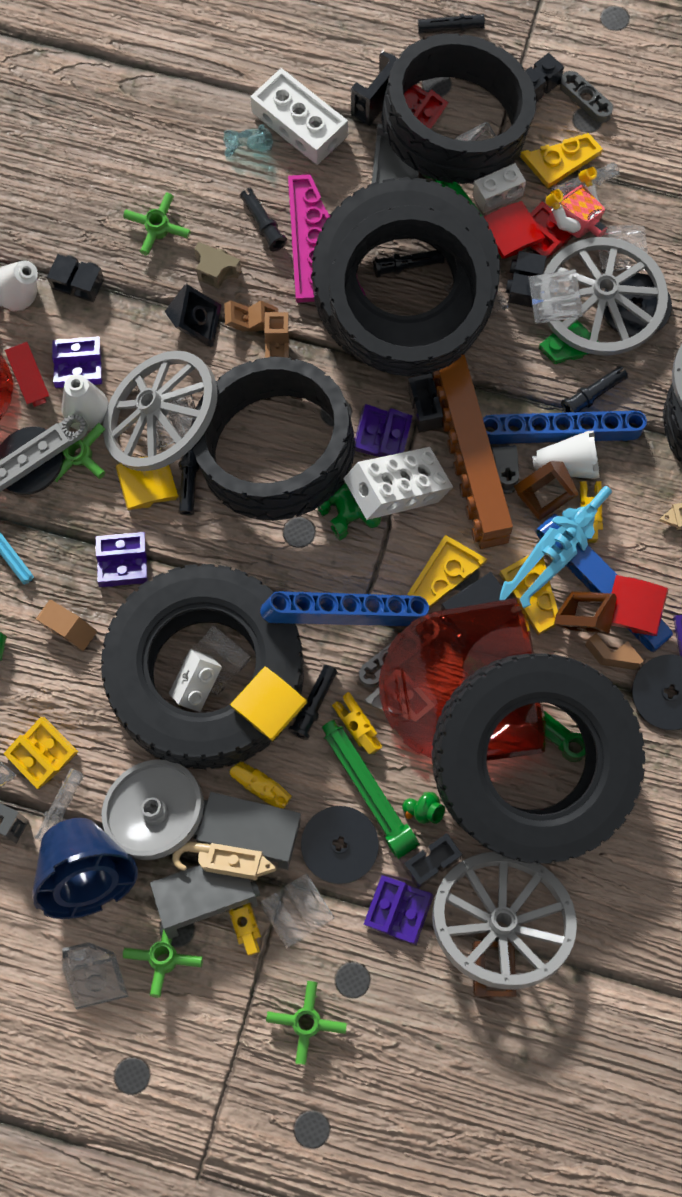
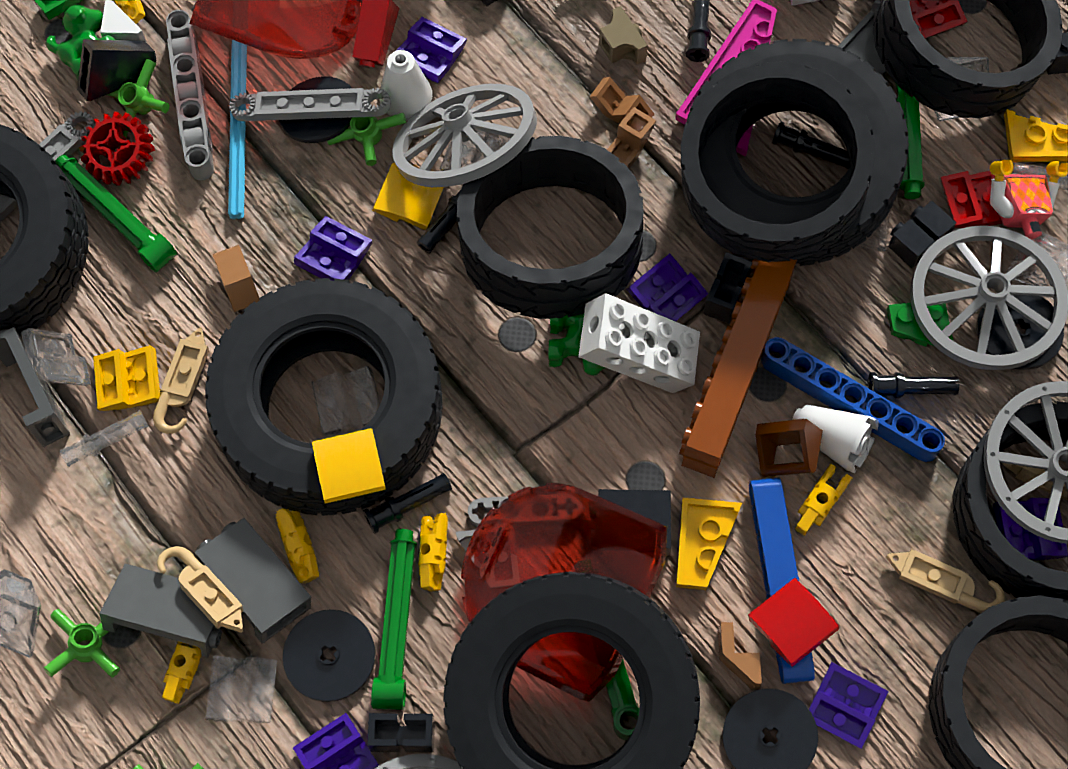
camera: 35 degrees right, 5 degrees down
(80, 870) = (67, 506): dark blue cone -> none
(83, 726) = (181, 379): none -> tan plate
(153, 809) = (180, 498): light grey dish -> none
(195, 314) = (568, 71): black slope -> none
(195, 680) = (308, 404): white brick -> none
(404, 608) = (481, 426): blue beam -> none
(424, 810) = (431, 677): green animal -> none
(446, 570) = (627, 462): yellow wing -> none
(499, 188) = (957, 130): white brick -> none
(507, 466) = (765, 399): dark grey piece -> none
(513, 229) = (939, 175): red slope -> none
(555, 296) = (934, 265): clear slope -> none
(574, 528) = (786, 502): medium azure sword -> none
(599, 623) = (742, 611): reddish brown tile -> none

